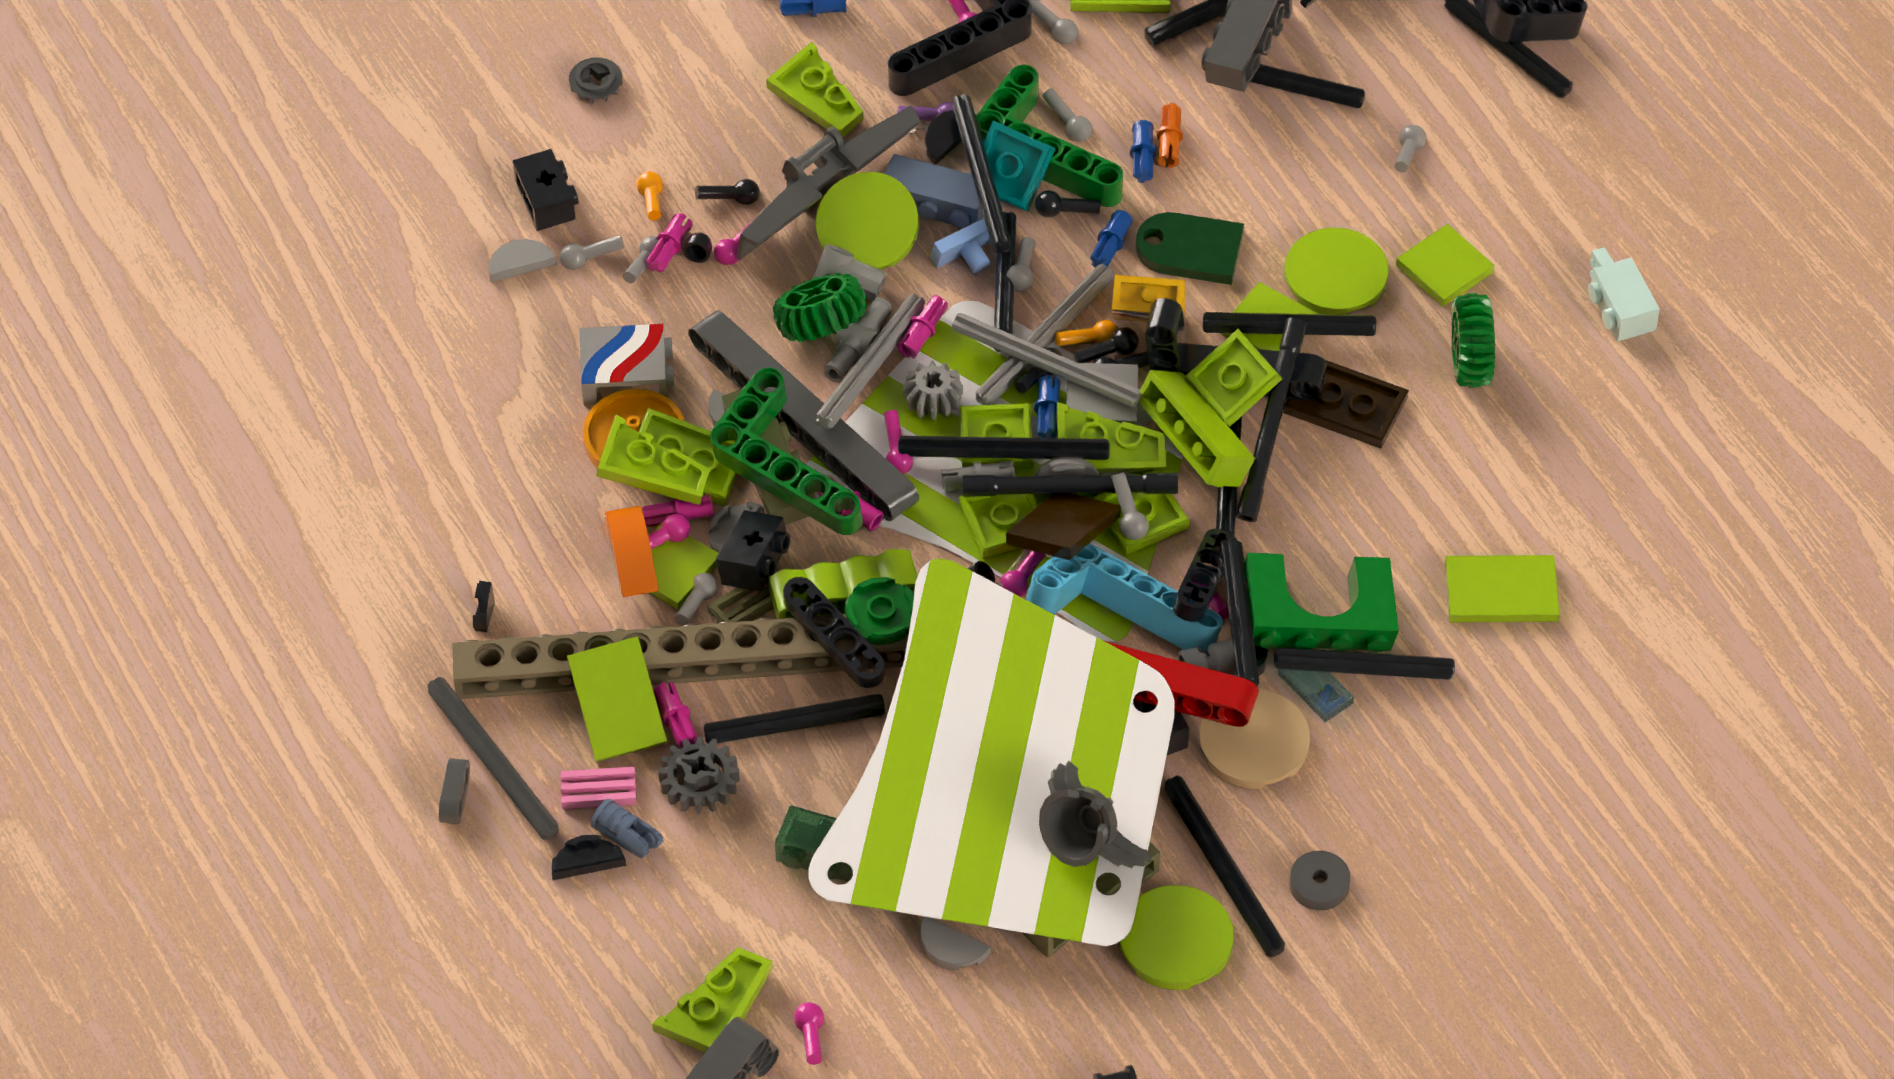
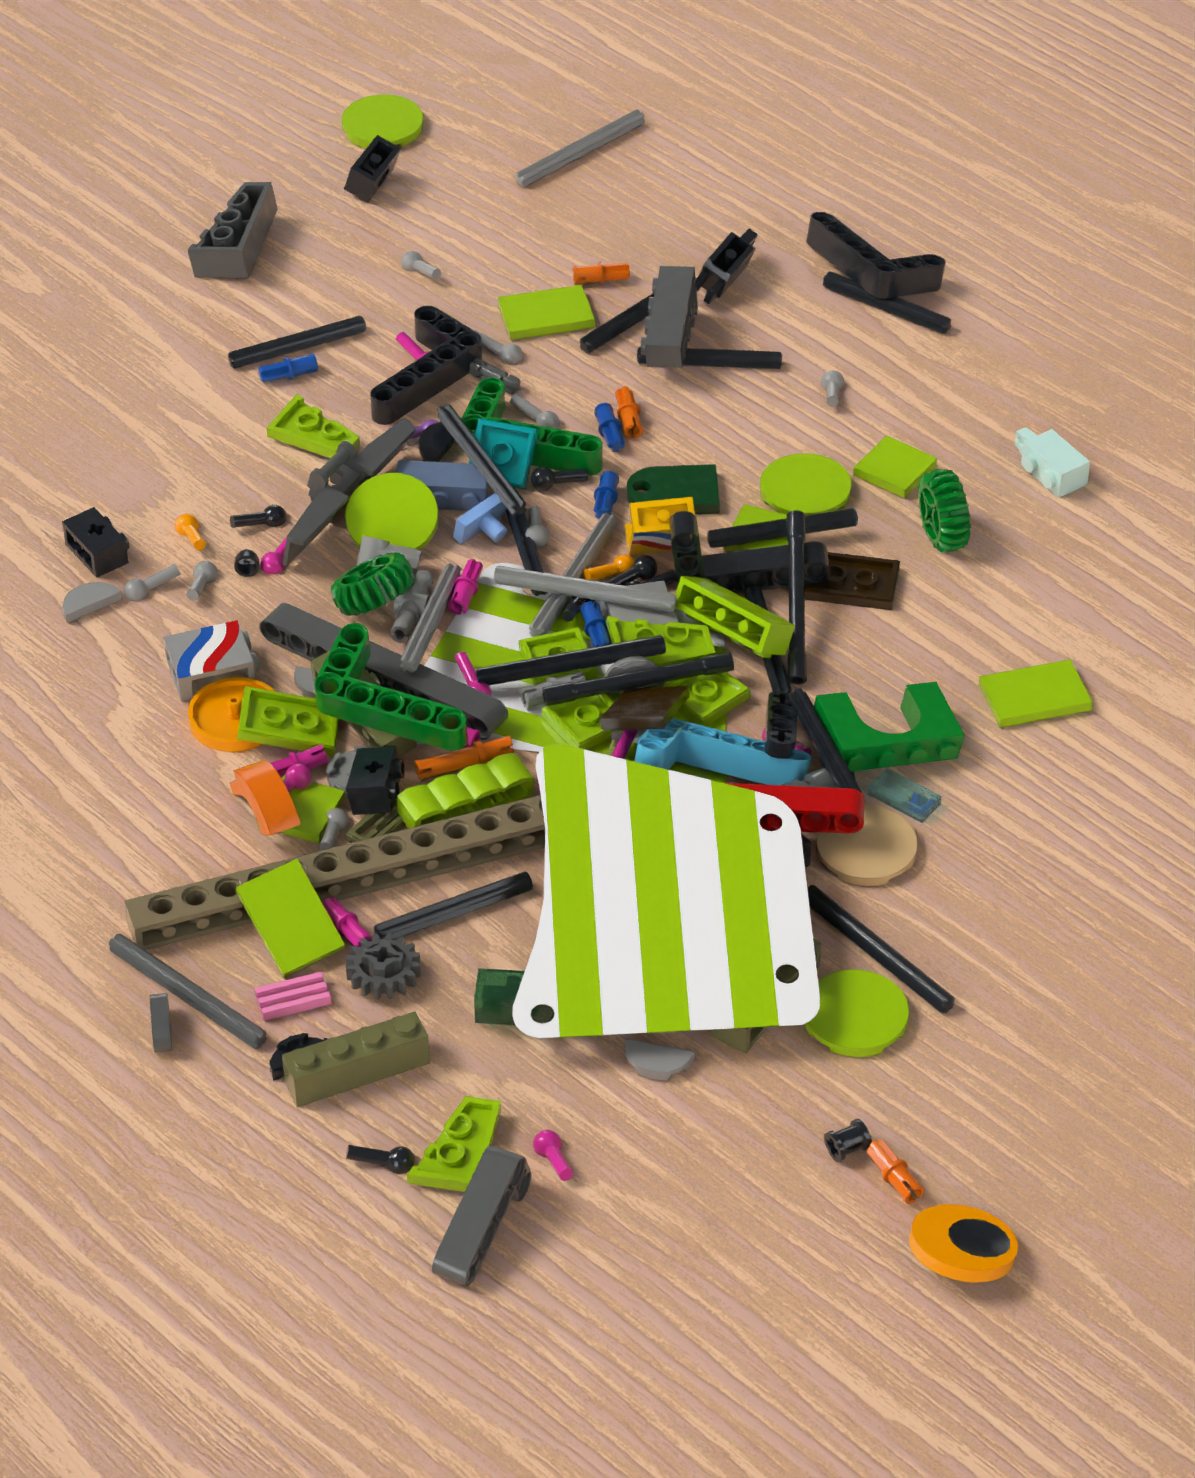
camera: 15 degrees left, 10 degrees down
(485, 597) = (141, 867): black tile -> none
(601, 69) = (115, 447): dark grey gear -> none
(625, 828) = (326, 1021): sand blue hinge -> none
(639, 878) = (356, 1059): none -> olive brick
(644, 464) = (257, 728): lime wing -> none
(652, 1001) = (398, 1160): none -> black bar
(669, 243) = (220, 563): dark pink axle -> none
(836, 630) = (468, 828): black beam -> none
(862, 540) = (477, 754): none -> orange pin
(880, 610) = (508, 802): green tile -> none
(933, 390) = (492, 631): light grey gear -> none
(1037, 58) = (478, 368): none -> dark grey axle
(1082, 824) = (753, 924): dark grey helmet -> none
(1133, 524) = (703, 699): light grey bar -> none
(1233, 377) = (754, 568): lime tile -> none
(1319, 865) = (968, 955): dark grey piece -> none
(1364, 663) = (941, 768): black axle -> none

